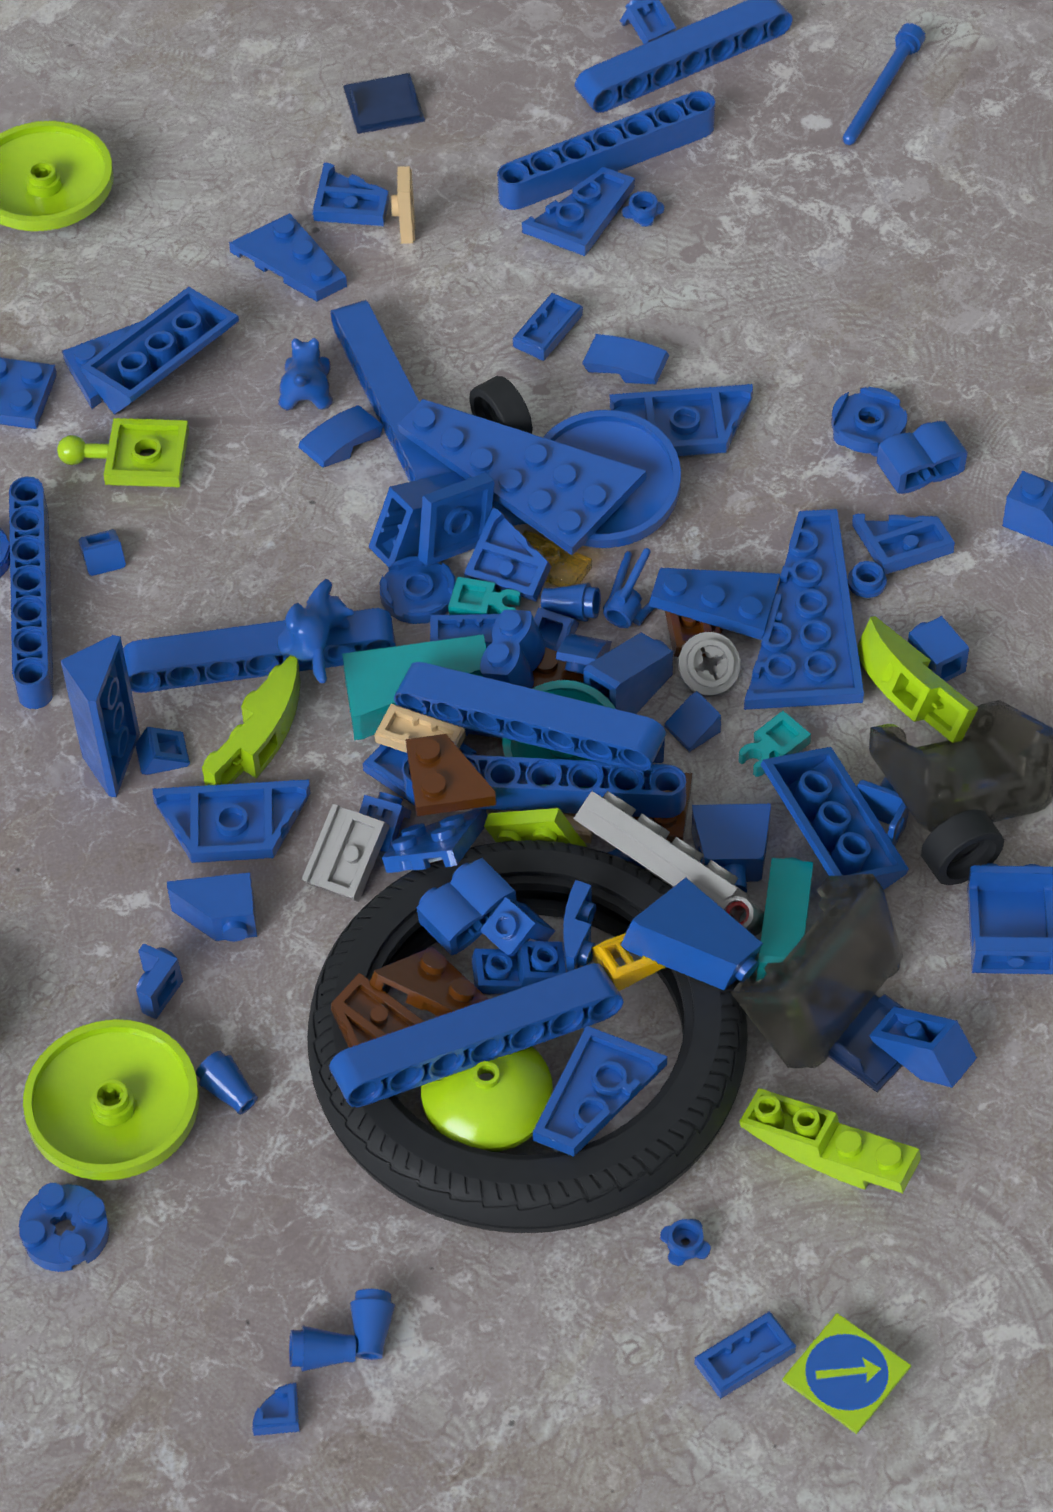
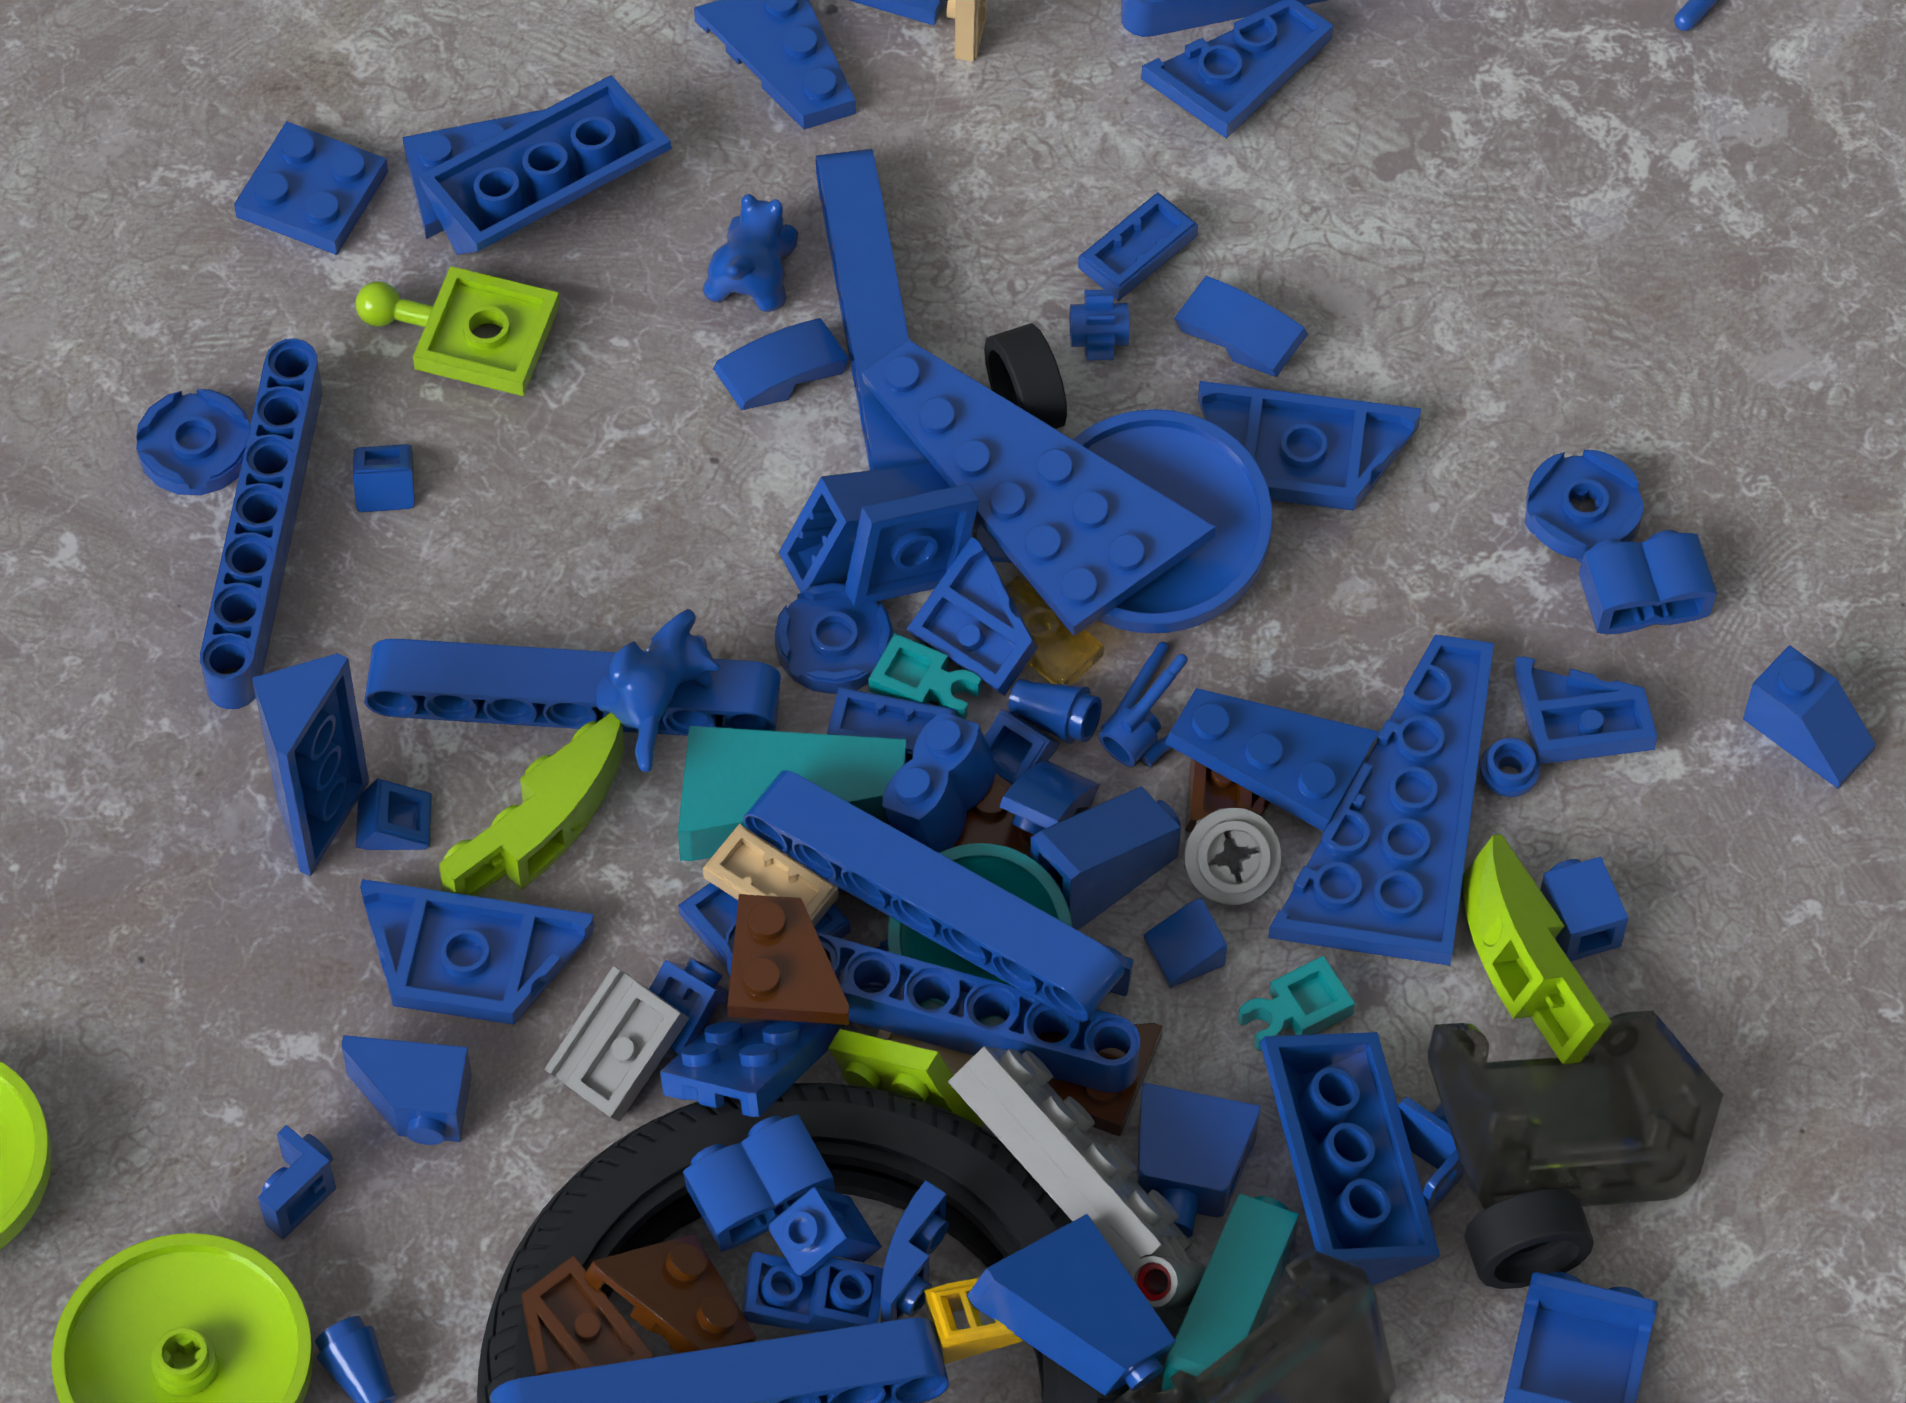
camera: 10 degrees right, 5 degrees up
(537, 374) = (1099, 325): none -> blue gear
(643, 208) = (1335, 65): blue plate -> none

